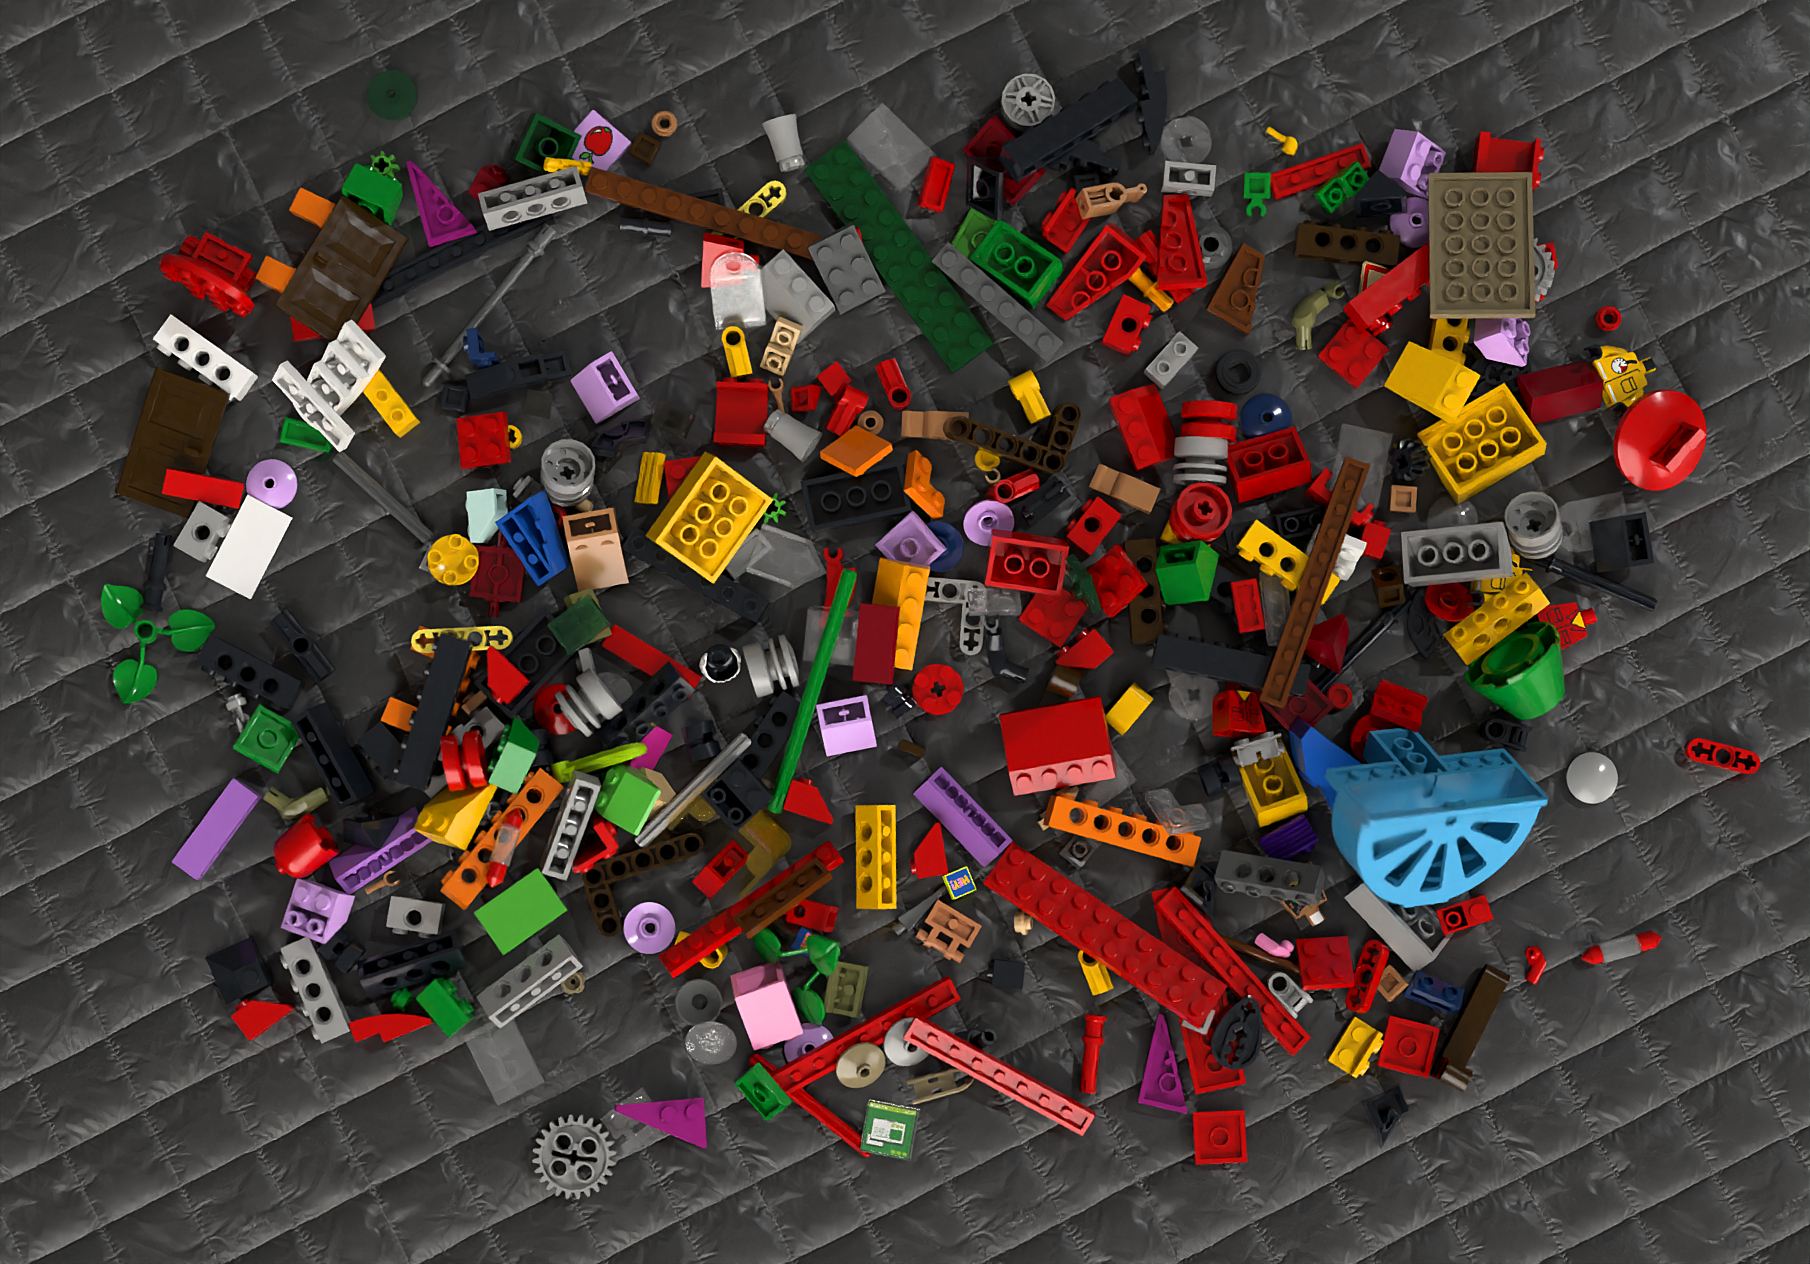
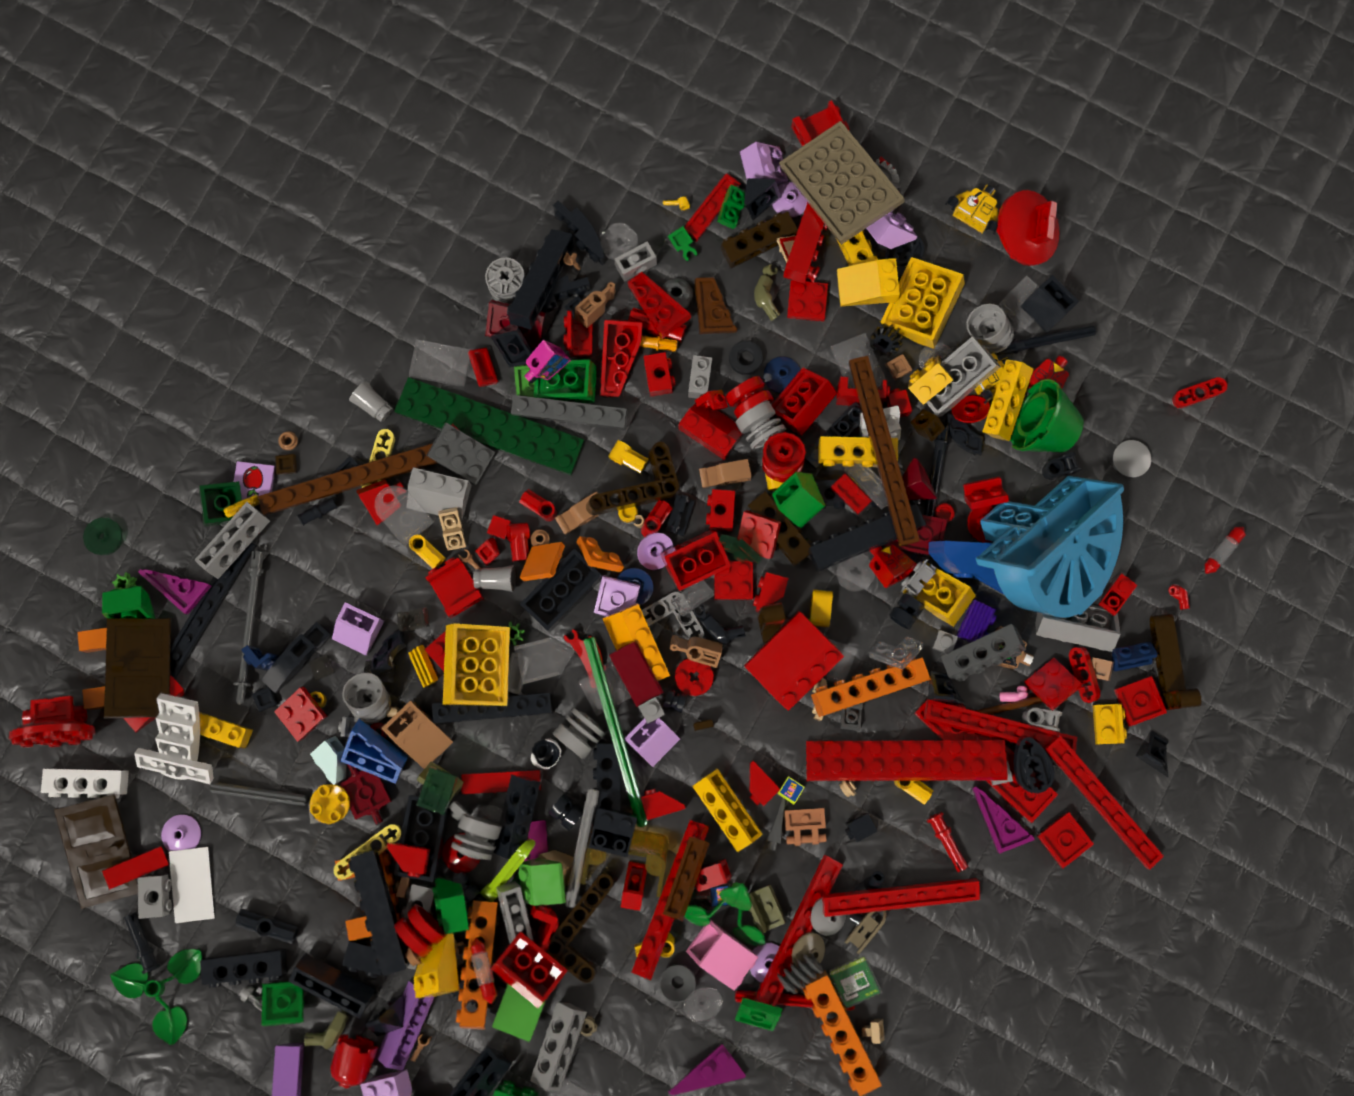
camera: 30 degrees left, 5 degrees down
(303, 435) = (180, 789): green tile -> none
(431, 913) = (443, 1054): light grey brick -> none
(439, 783) = (412, 957): none -> medium nougat plate
(488, 178) = (196, 546): dark red bracket -> none
(553, 879) = (529, 969): none -> red slope
(636, 932) = (609, 966): lavender dish -> none
(835, 1238) = (862, 1082): none -> orange brick
(837, 1079) = (800, 973): none -> dark grey piece
(866, 694) = (651, 710): none -> light grey plate
(875, 1194) = (876, 1030): none -> tan tile
(962, 663) = (698, 649): none -> medium nougat piece
(962, 817) = (764, 746): medium lavender brick -> none
(1009, 229) = (545, 361): none -> dark pink torso
(1116, 128) = (571, 260): none -> medium nougat hand
(1169, 397) = (712, 399): none -> red bracket
(1238, 837) = (944, 642): none -> light grey plate
(1289, 1124) = (1103, 802): none -> red plate
(1422, 537) = (929, 380): none -> yellow bracket
(1560, 391) = (948, 239): dark red slope -> none
(1611, 311) = (945, 175): red plate -> none

